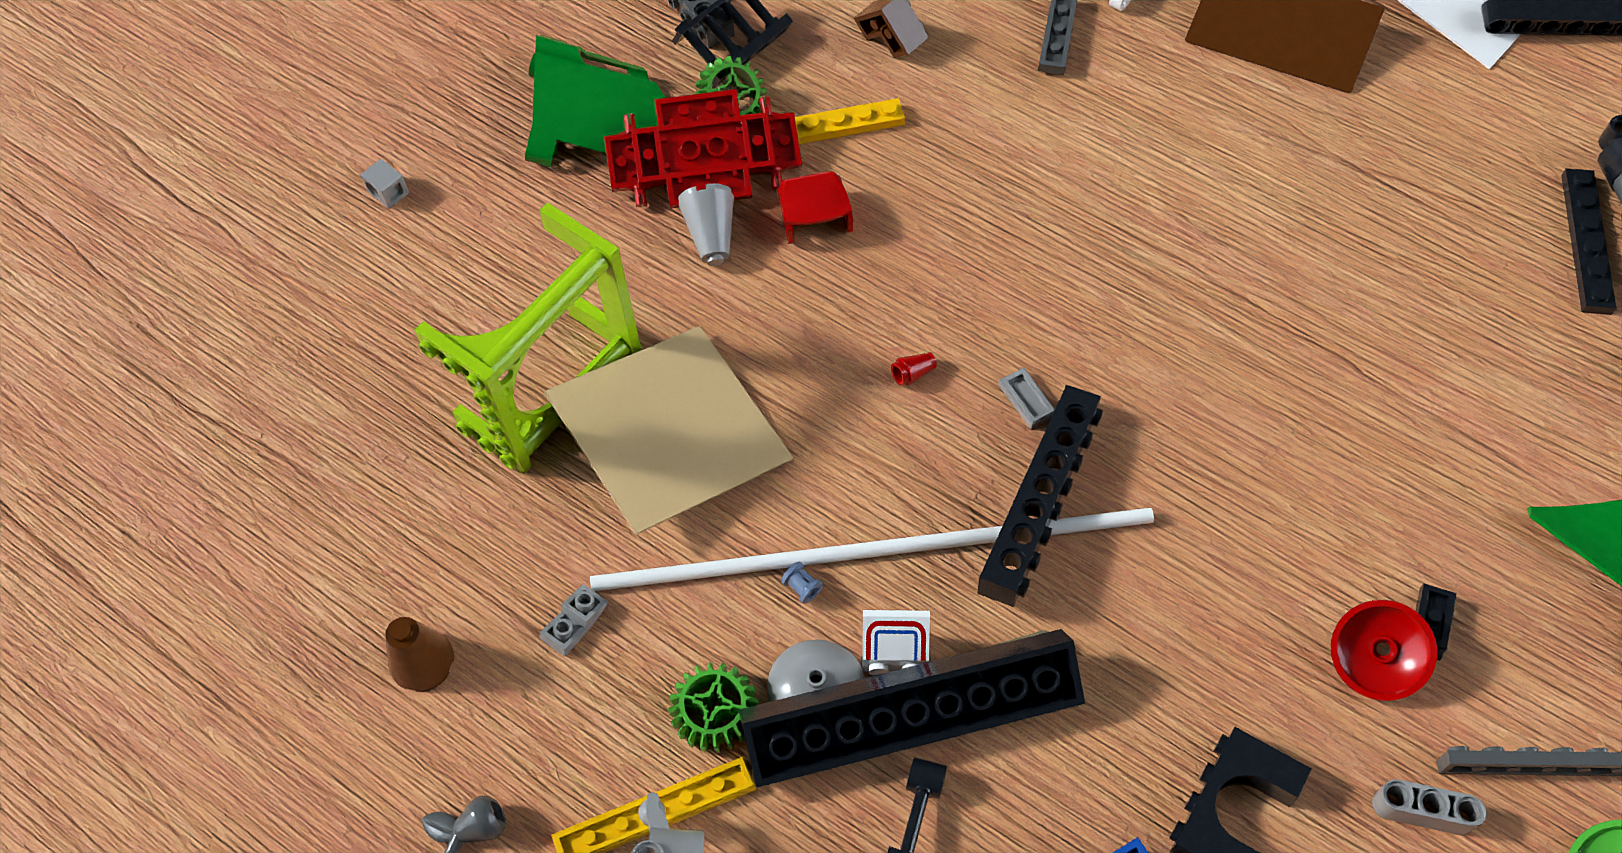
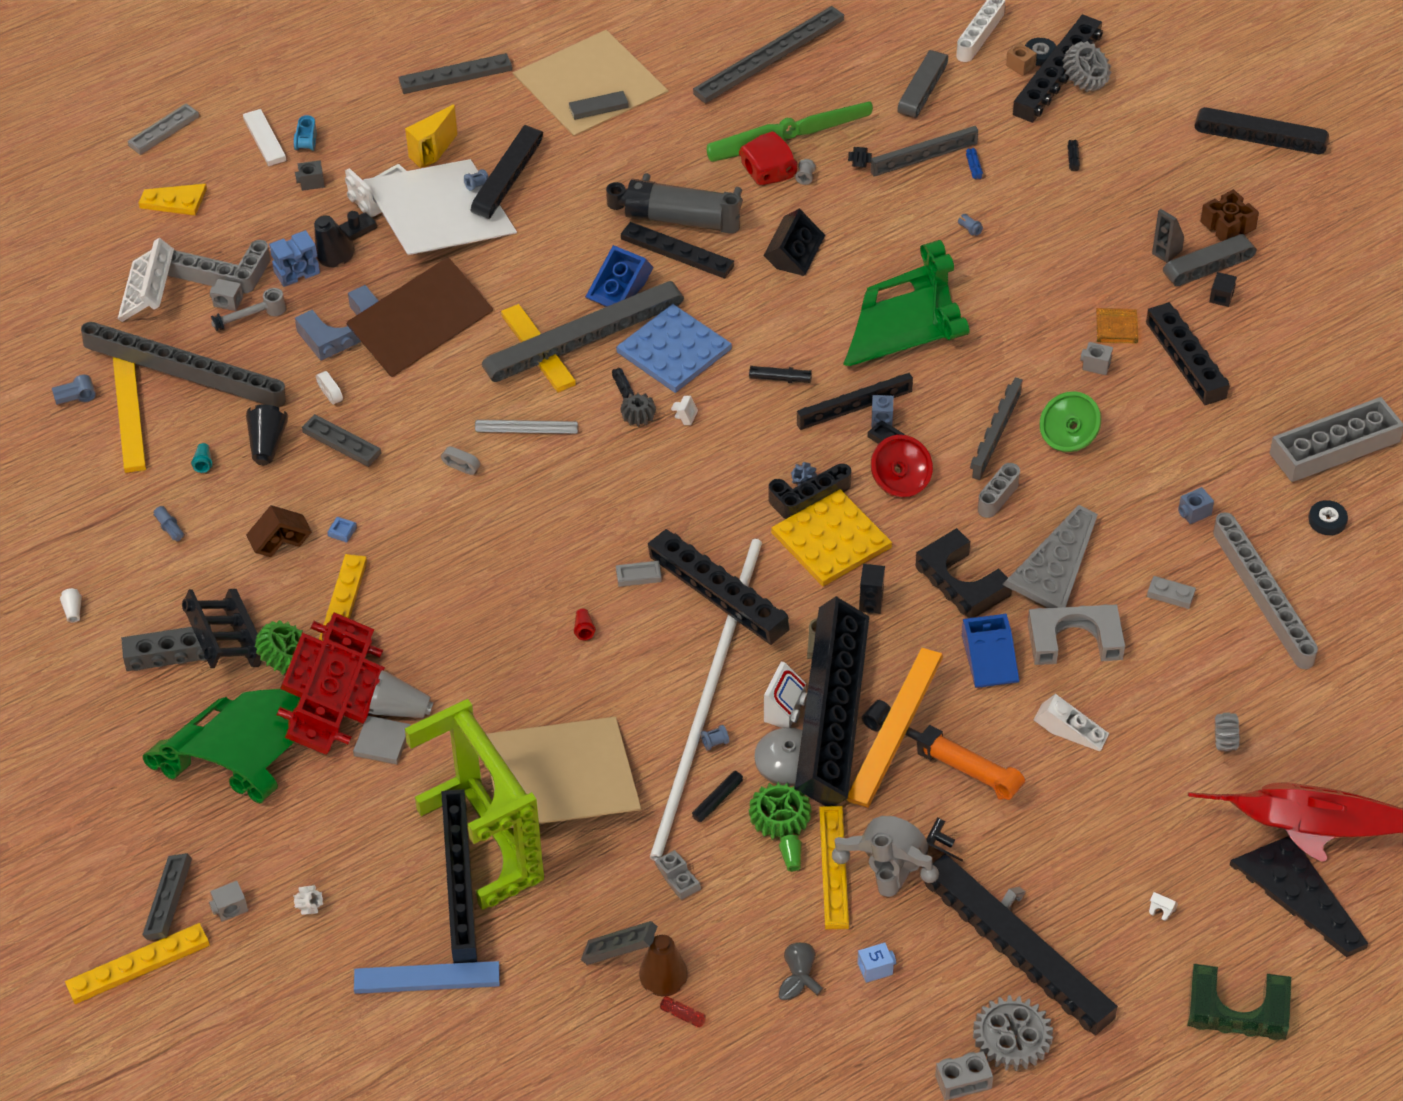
camera: 70 degrees left, 10 degrees down
(292, 143) = (137, 963): none -> yellow plate
(344, 408) = (426, 977): none -> medium blue tile
(366, 704) = (682, 1011): none -> clear red axle
(369, 131) = (167, 896): none -> dark grey plate
(398, 252) = (308, 900): none -> white gear
(413, 586) = (619, 943): none -> dark grey plate
(439, 395) = (459, 877): none -> black brick
(653, 746) = (791, 852): none -> bright green cone
(656, 235) = (381, 740): none -> light grey tile
(713, 621) = (717, 796): none -> black axle
(813, 201) = (418, 632): red piece -> none
(909, 809) = (894, 728): none -> light orange tile
(935, 83) = (342, 529): none -> medium blue tile
(1094, 148) = (460, 460): none -> light grey beam
(1135, 688) = (871, 588): none -> black brick
(1189, 194) = (526, 426): none -> light grey axle
(1213, 607) = (831, 537): none -> yellow plate
(1278, 549) = (791, 501): none -> black beam
(1286, 295) = (638, 409): none -> dark grey gear
(1294, 529) = (803, 473): none -> sand blue gear
(1319, 159) = (525, 329): none -> yellow tile
(1319, 349) = (685, 410): none -> white tile
(1320, 266) = (622, 382): none -> black axle
(1378, 192) = (581, 331): none -> dark grey beam
(1420, 299) = (674, 348): none -> medium blue plate
(1461, 446) = (790, 375): none -> black pin
(1472, 548) = (853, 401): none -> black plate
(1474, 588) = (882, 409): none -> sand blue brick
(1487, 195) = (619, 277): none -> blue slope

